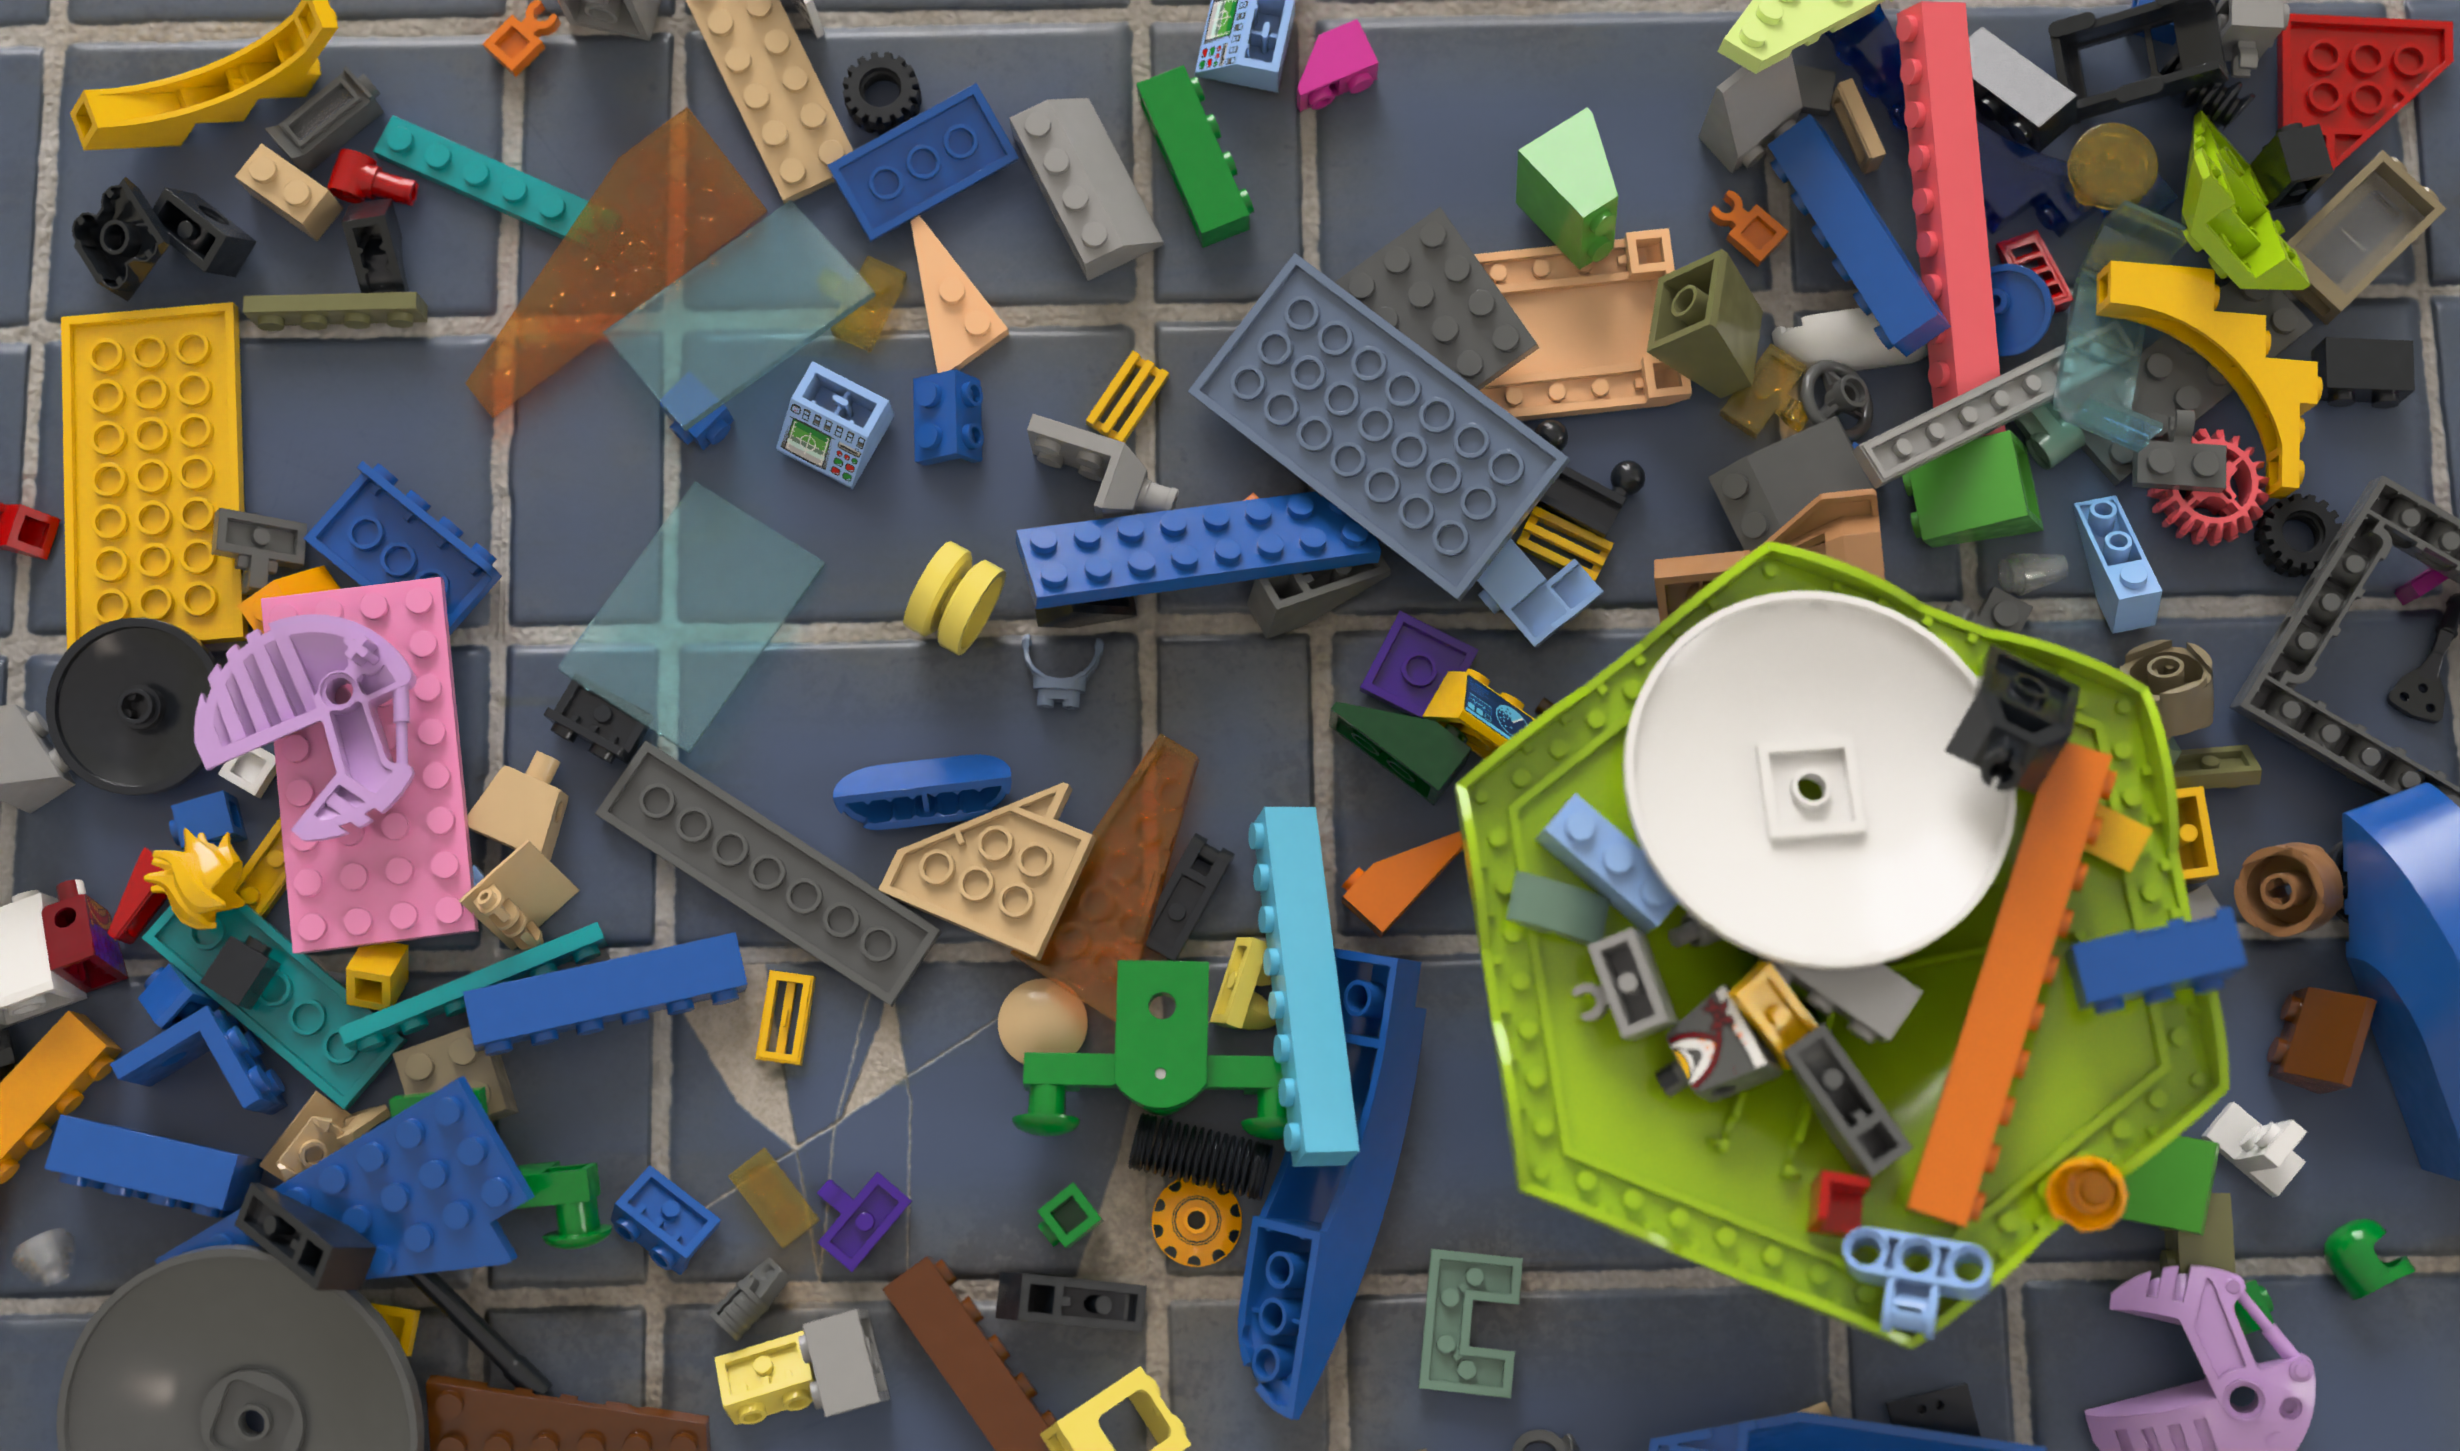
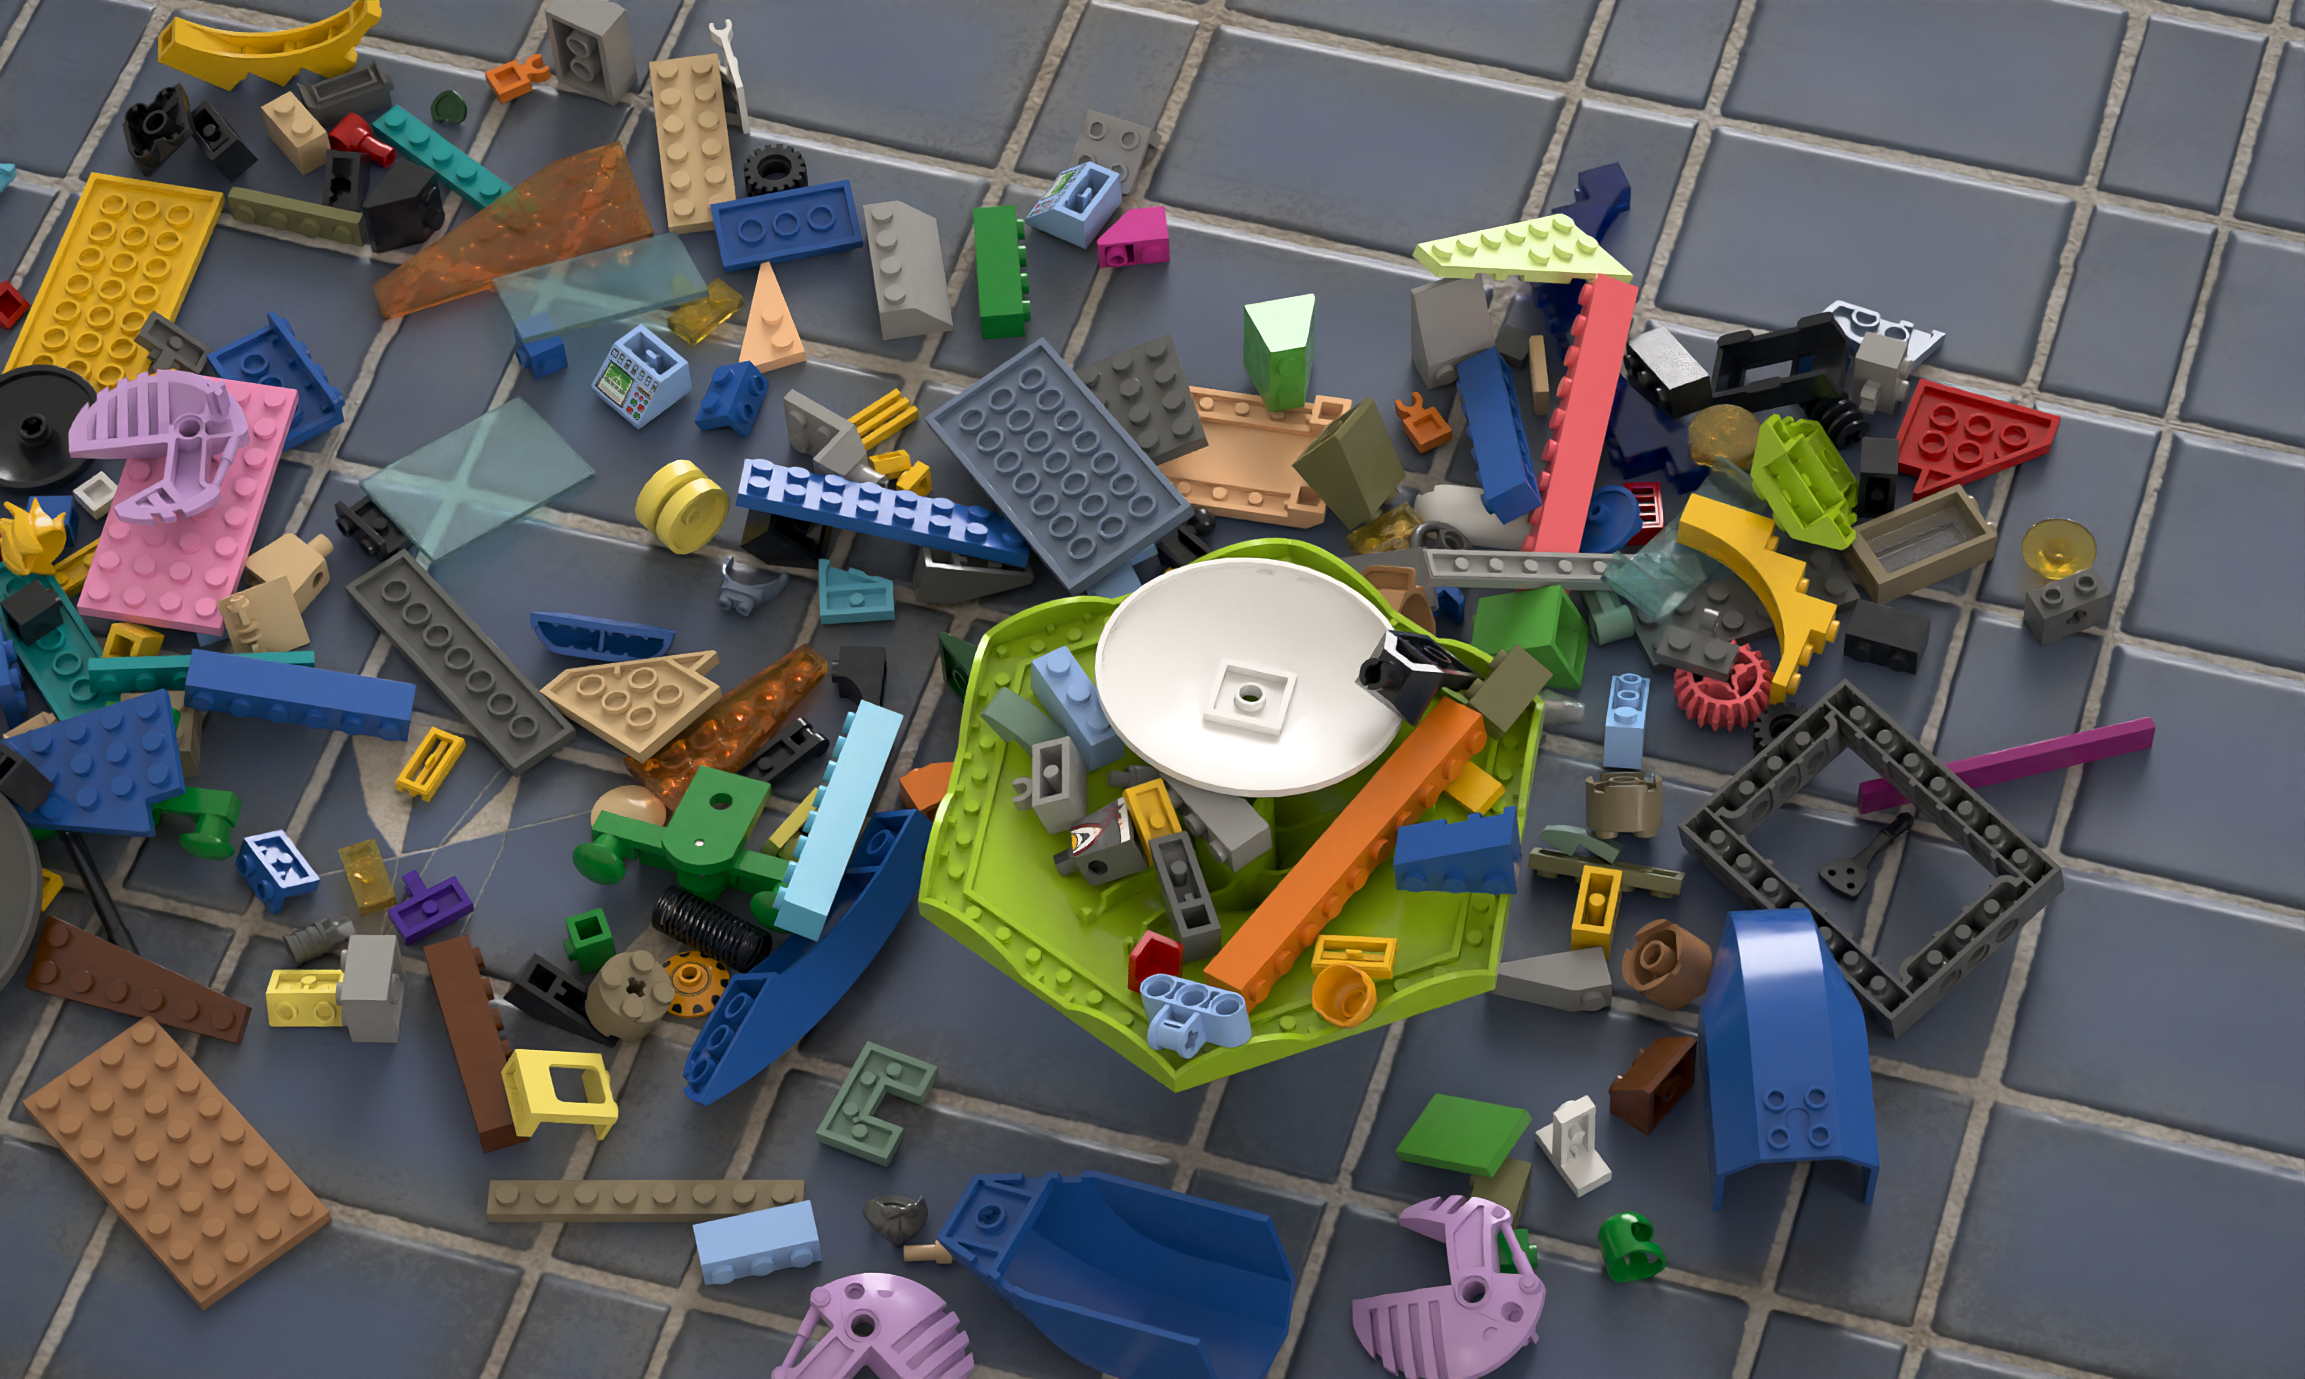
camera: 20 degrees right, 25 degrees down
(456, 101) = (449, 106): none -> dark green piece
(462, 269) = (403, 208): none -> black slope
(1145, 1282) = (629, 996): none -> dark tan brick
(1165, 457) = (891, 463): none -> yellow plate
(1188, 649) = (853, 596): none -> medium azure wing
(1202, 480) = (916, 480): none -> yellow plate
(1244, 760) = (861, 674): none -> black arch
(2112, 1116) = (1374, 965): none -> yellow tile
(2119, 703) = (1507, 690): none -> olive brick

